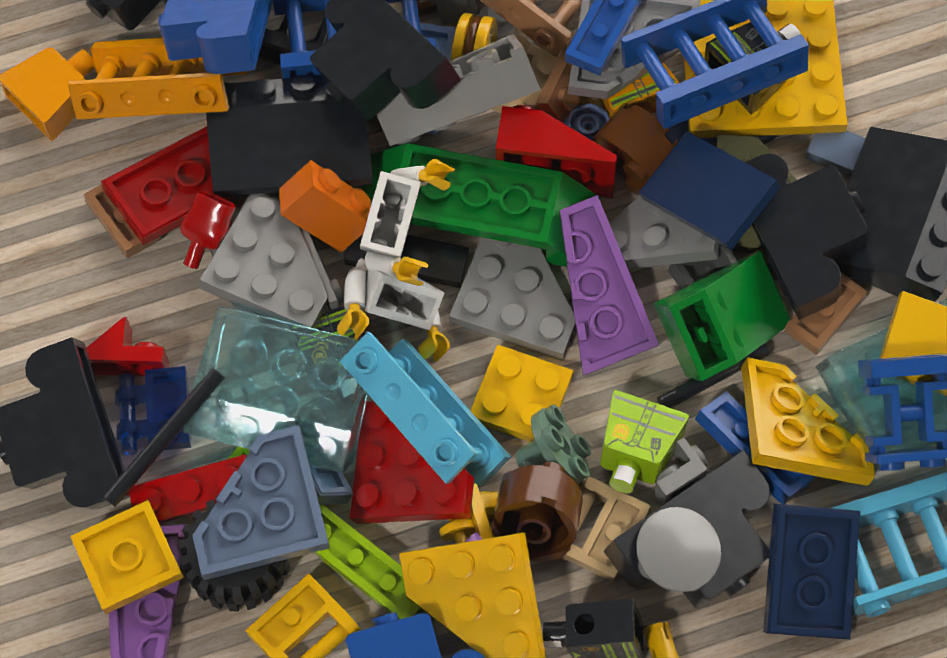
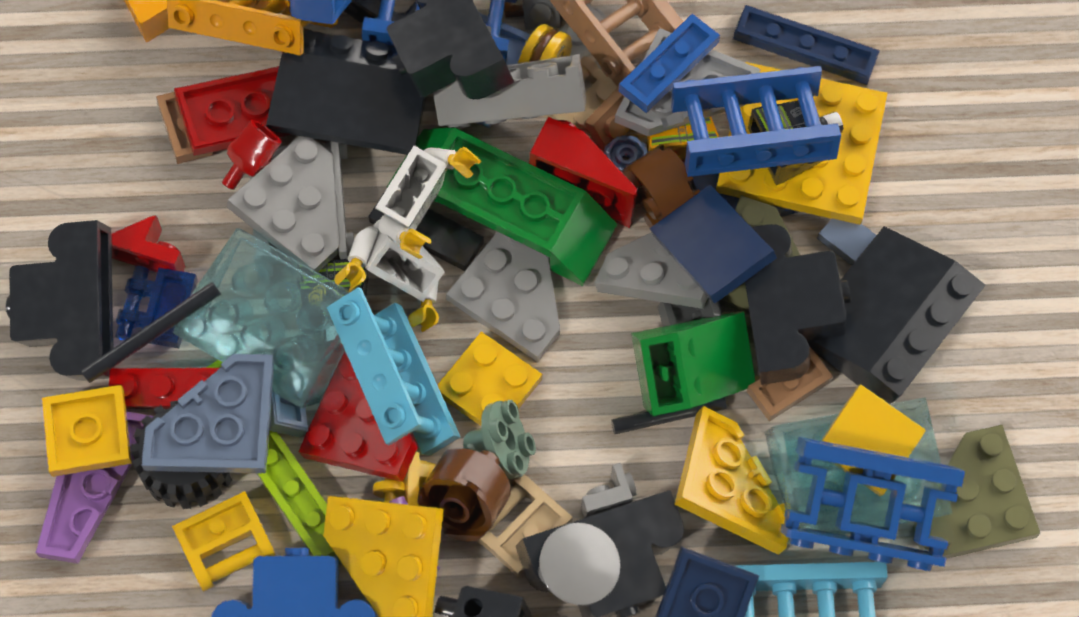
camera: 10 degrees right, 0 degrees up
(325, 206) = (360, 162): orange brick -> none
(604, 297) = (589, 319): medium lavender wing -> none
(639, 440) = (580, 454): lime torso -> none
(729, 427) = (666, 461): blue plate -> none

